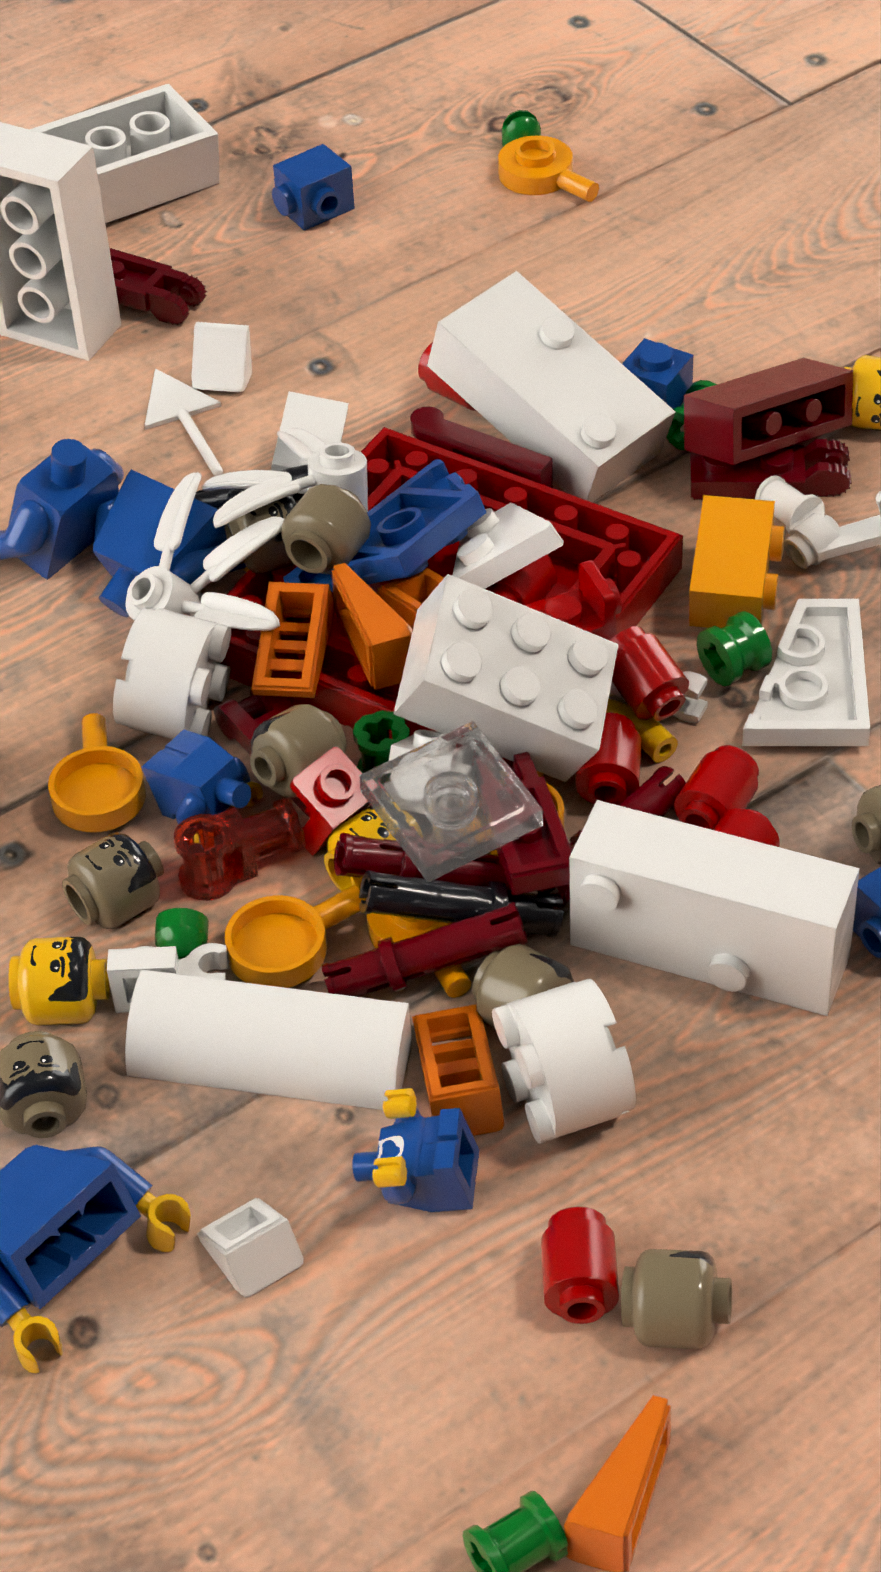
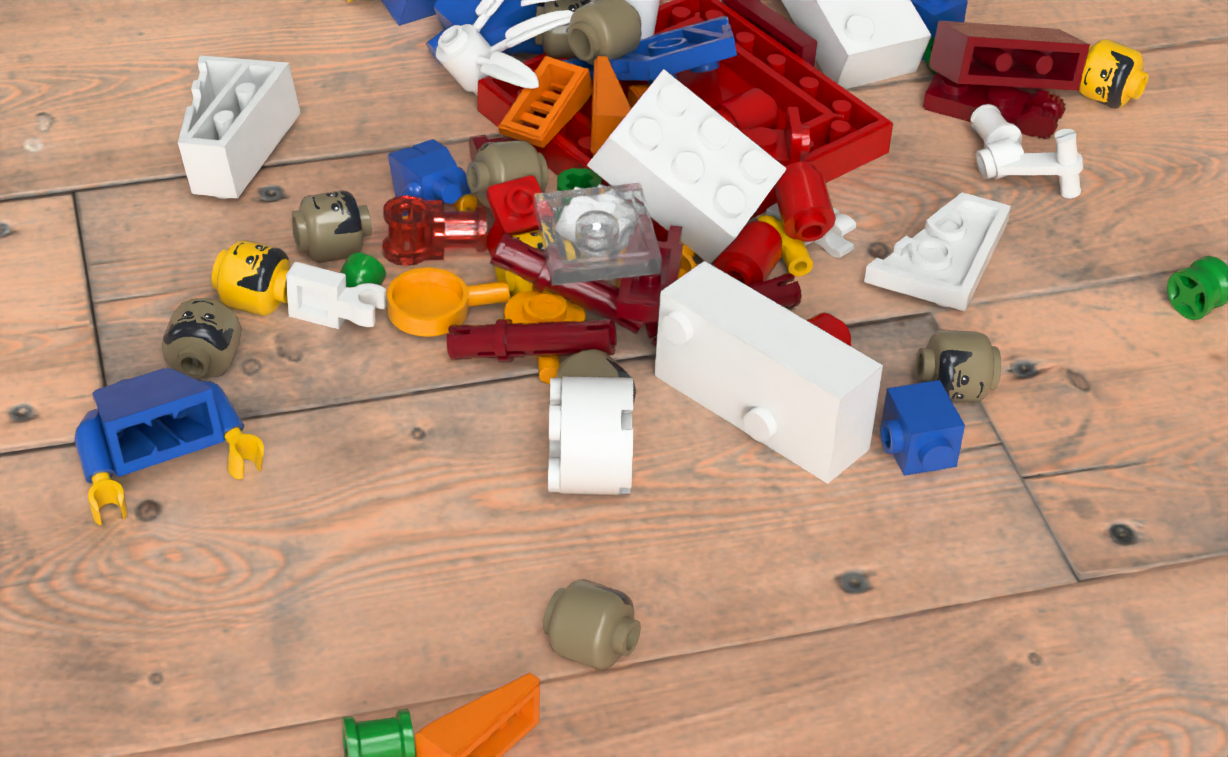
camera: 15 degrees right, 5 degrees down
(97, 784) = (355, 160): light orange piece -> none
(171, 673) = (445, 99): white brick -> none
(252, 1246) = (299, 494): white slope -> none
(267, 1039) = (386, 362): white brick -> none
(421, 1159) = (455, 474): blue piece -> none
(455, 902) = (563, 305): black pin -> none
(459, 1071) = (514, 431): orange slope -> none
(503, 544) = (737, 81): white wing -> none
(579, 1265) = (531, 578): red brick -> none
(718, 783) = (828, 292): red brick -> none
(733, 560) = (922, 153): light orange brick -> none
(734, 648) = (892, 212): green wheel -> none

